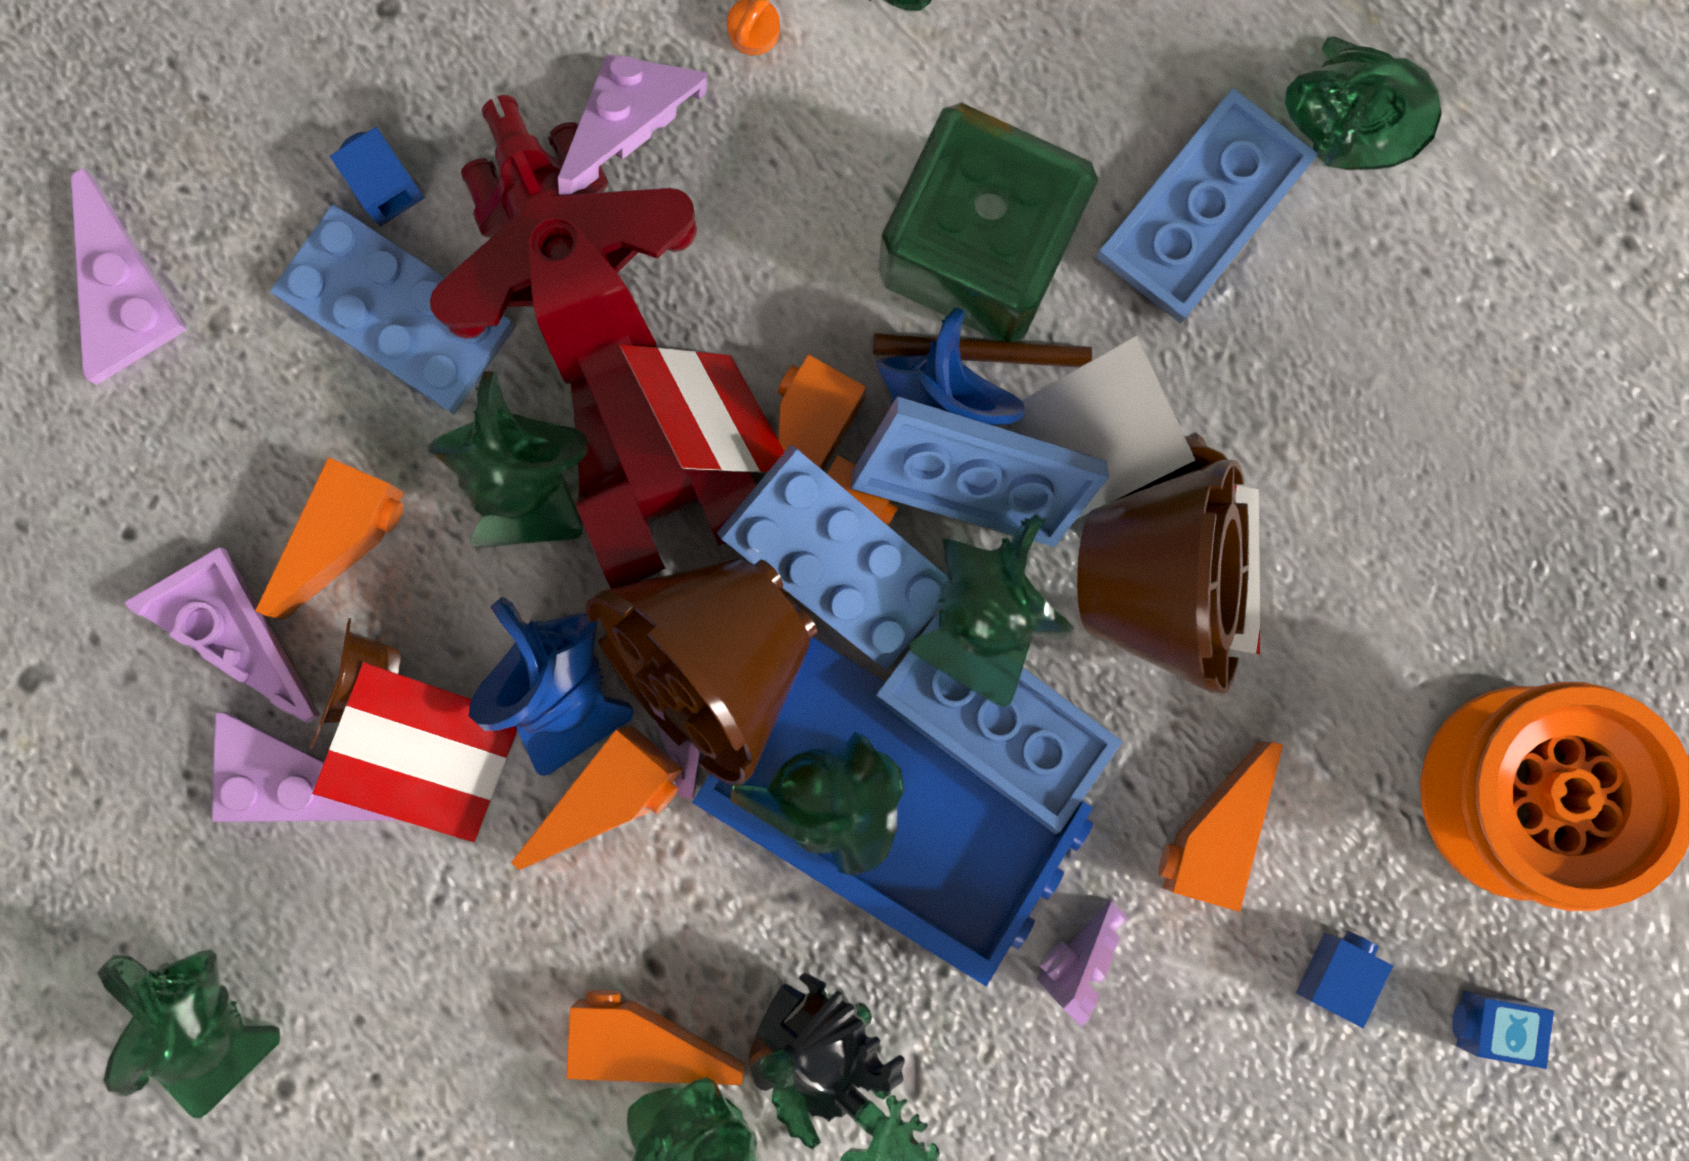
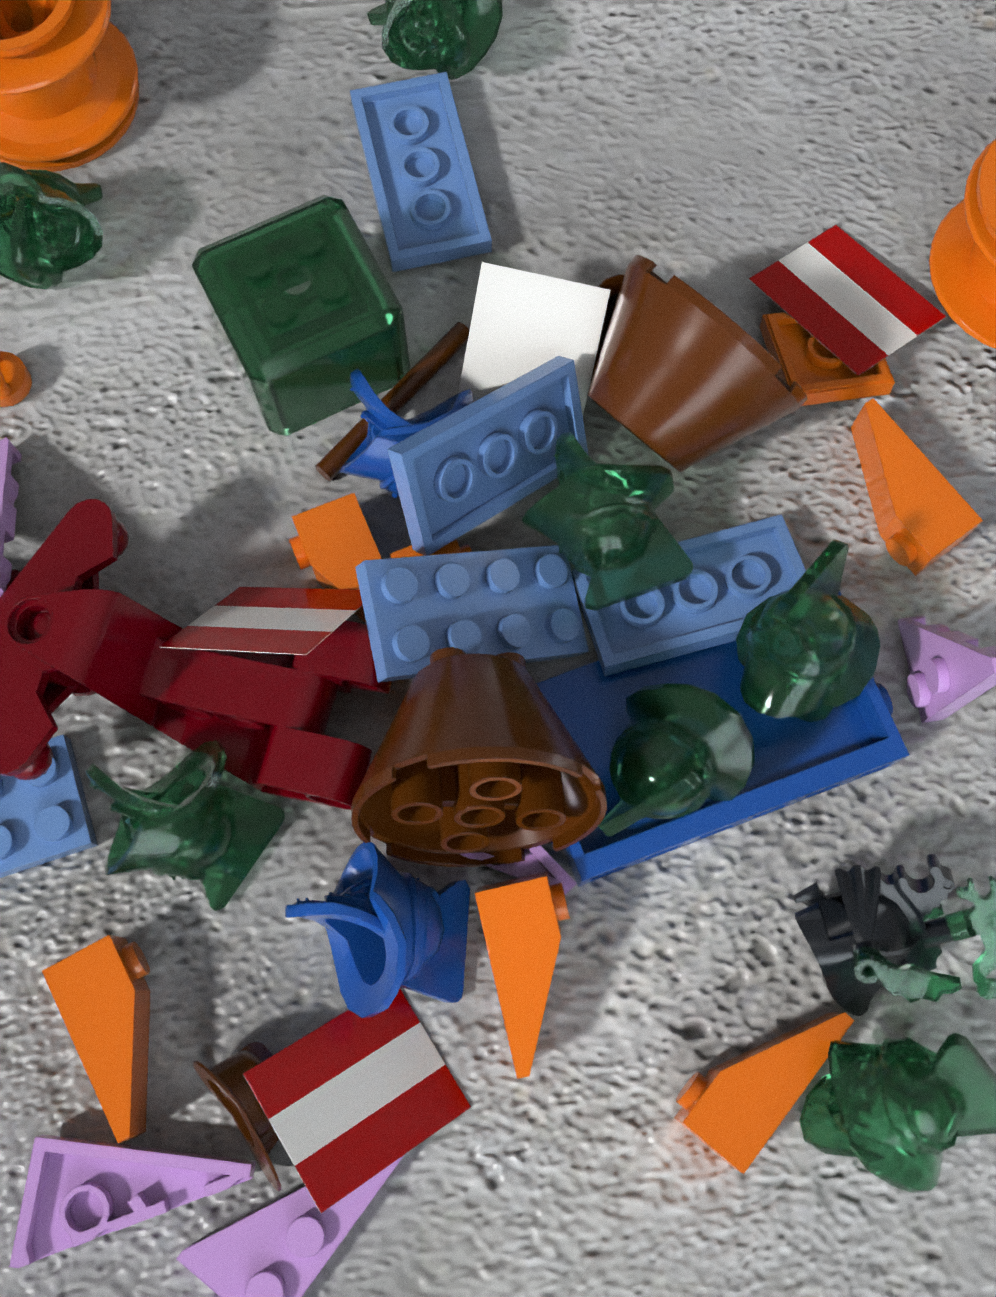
camera: 50 degrees left, 10 degrees down
(1006, 844) = (807, 645): none -> clear green helmet
(1304, 675) = (815, 367): none -> orange plate
(1372, 656) = (847, 299): none -> red sticker

